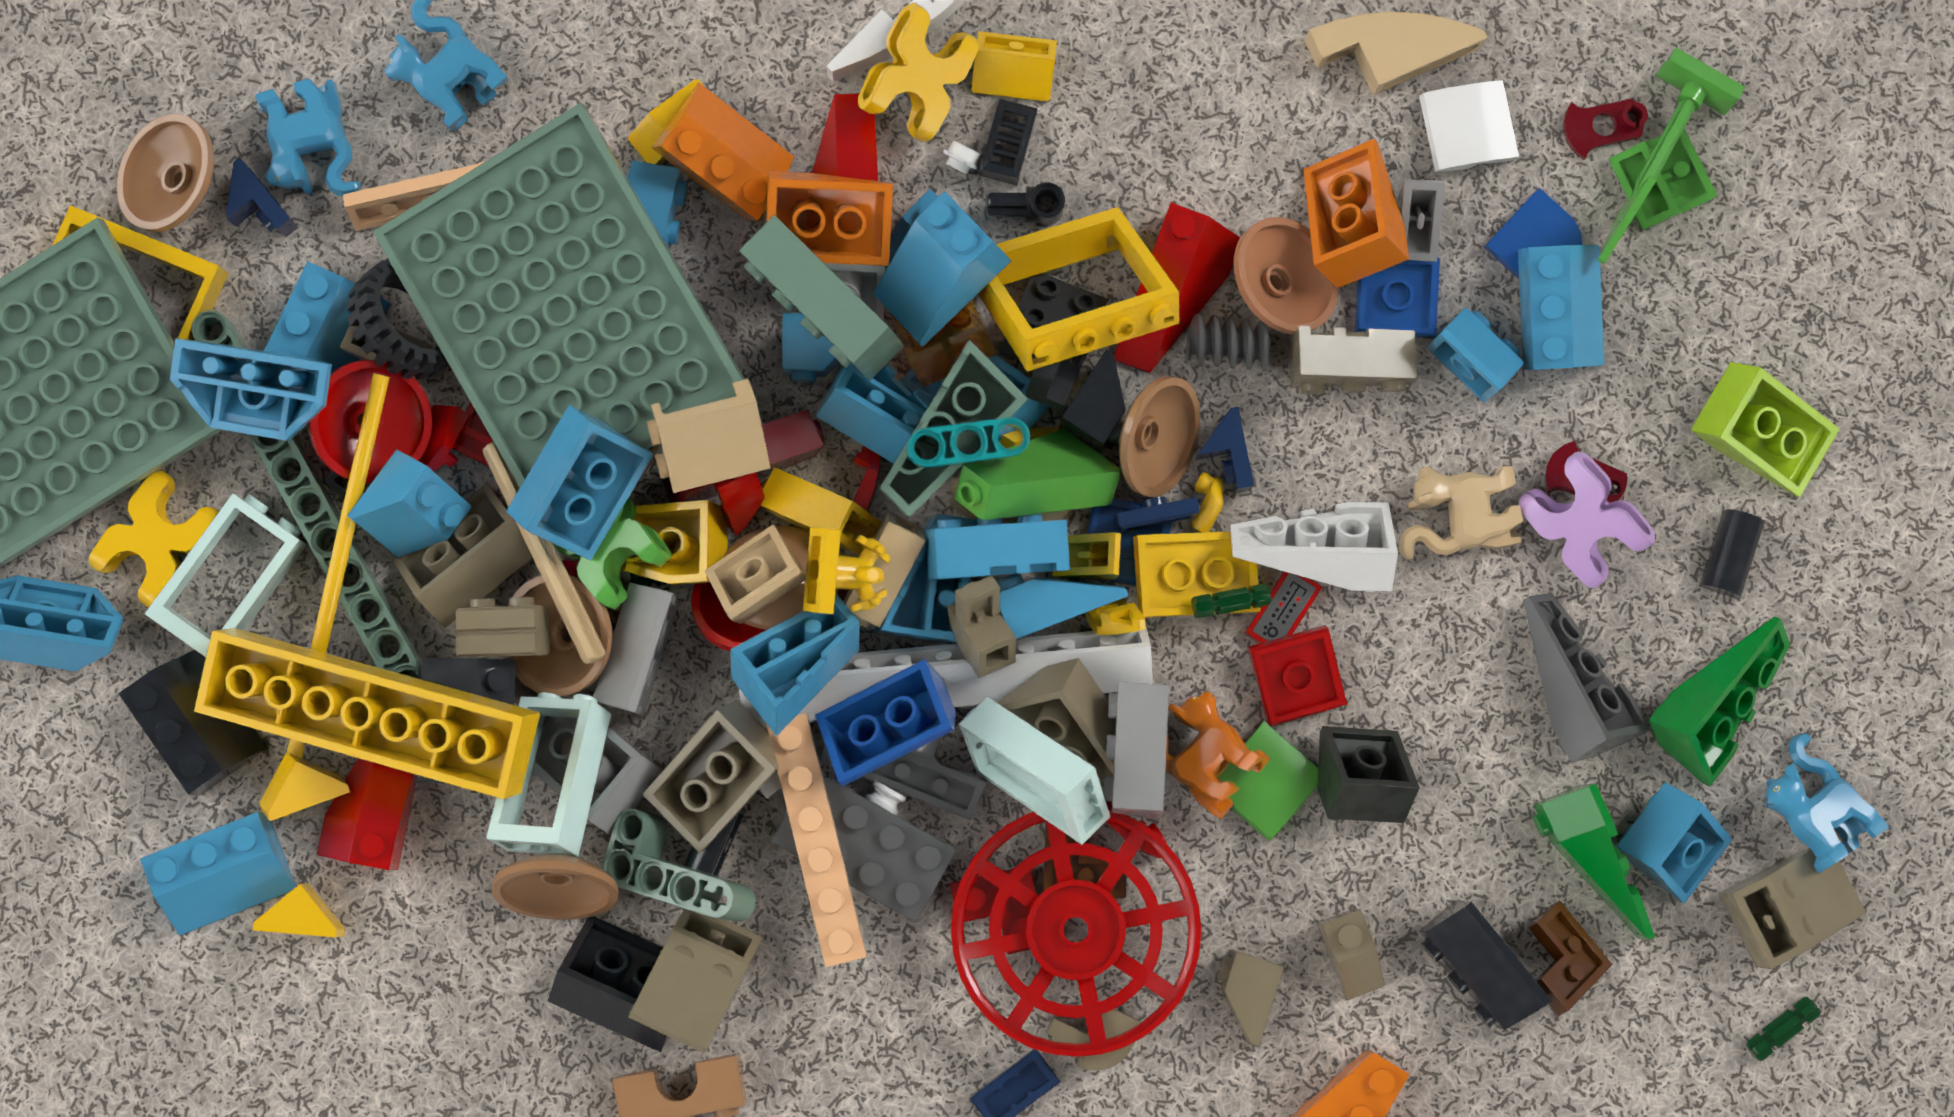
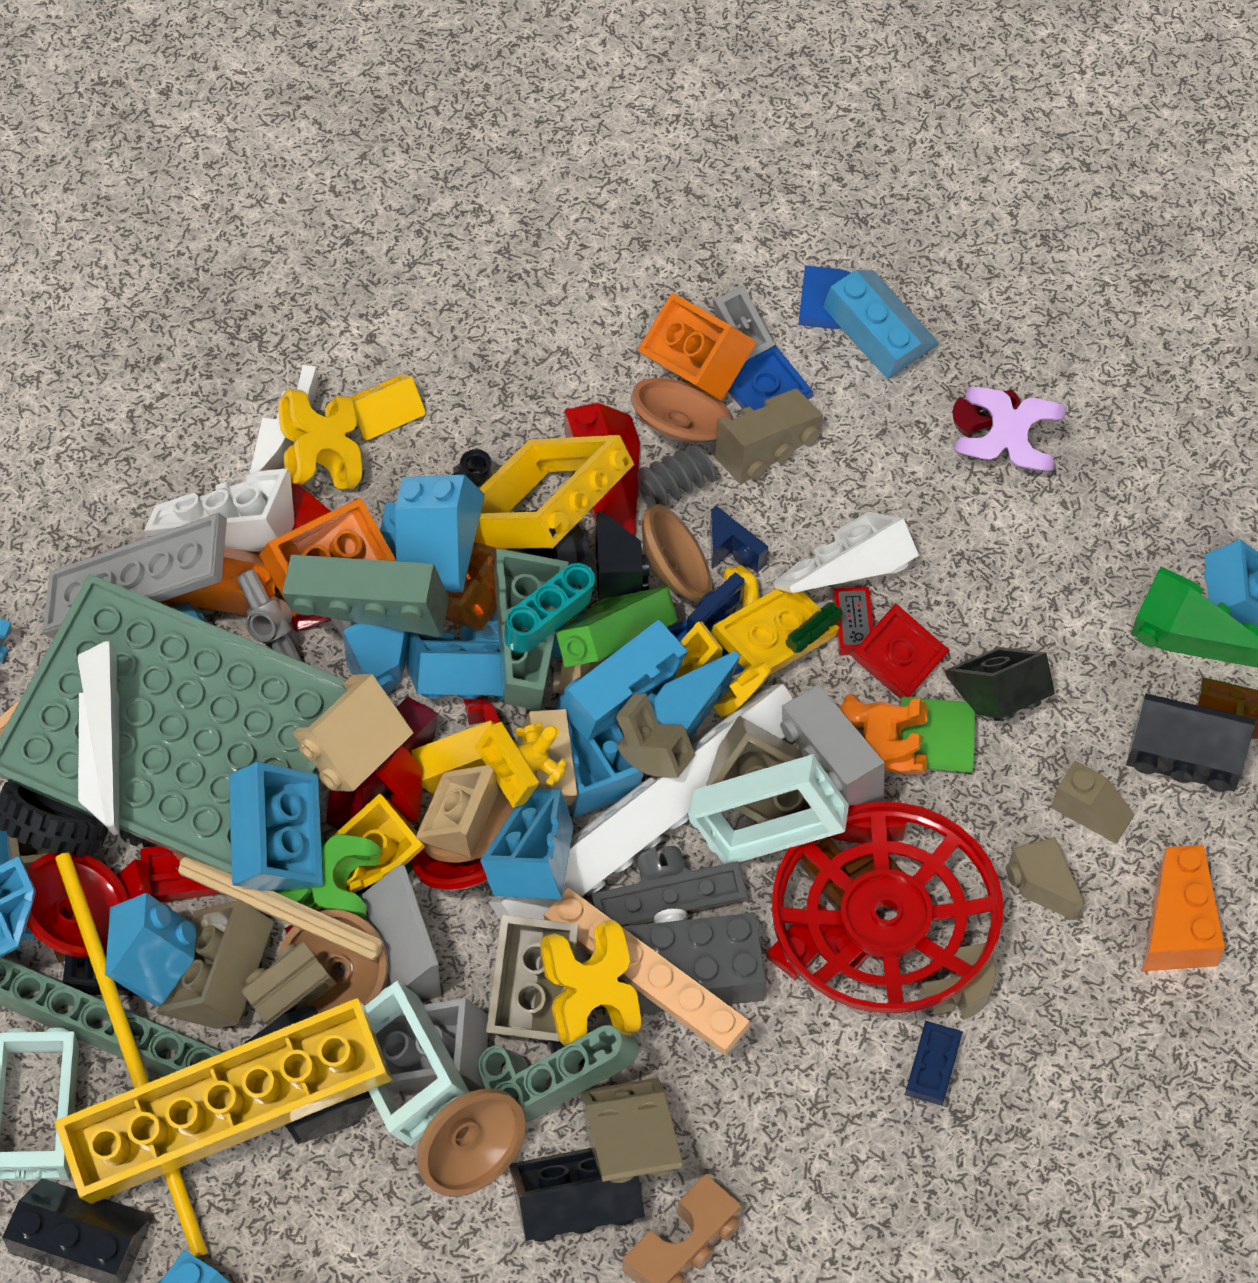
camera: 30 degrees left, 25 degrees down
(298, 786) = (201, 1209): yellow slope -> none
(371, 819) = (274, 1200): red wedge -> none
(484, 282) = (99, 735): none -> white wedge
(642, 117) = (151, 567): none -> light grey tile
(731, 236) = (267, 617): none -> light grey axle
(749, 828) = (591, 982): none -> yellow piece
(792, 101) = (253, 509): none -> white wedge
(886, 721) = (632, 846): blue slope -> none
(962, 157) = (389, 479): white plate -> none
(1000, 171) = (433, 468): black slope -> none
(1393, 44) = (636, 240): tan slope -> none
(1468, 126) = (727, 258): white slope -> none
(1469, 512) = (926, 476): tan animal -> none
(1476, 354) = (849, 383): dark azure slope -> none
(1579, 125) = (825, 195): dark red piece -> none
(1580, 699) = (1116, 548): dark grey wedge -> none
(1678, 187) = (880, 214): bright green slope -> none
(1697, 85) = (858, 149): bright green piece -> none
(1706, 710) = (1191, 489): green wedge -> none
(1732, 553) = (1121, 397): black brick -> none
(1765, 427) = (1074, 310): lime slope -> none

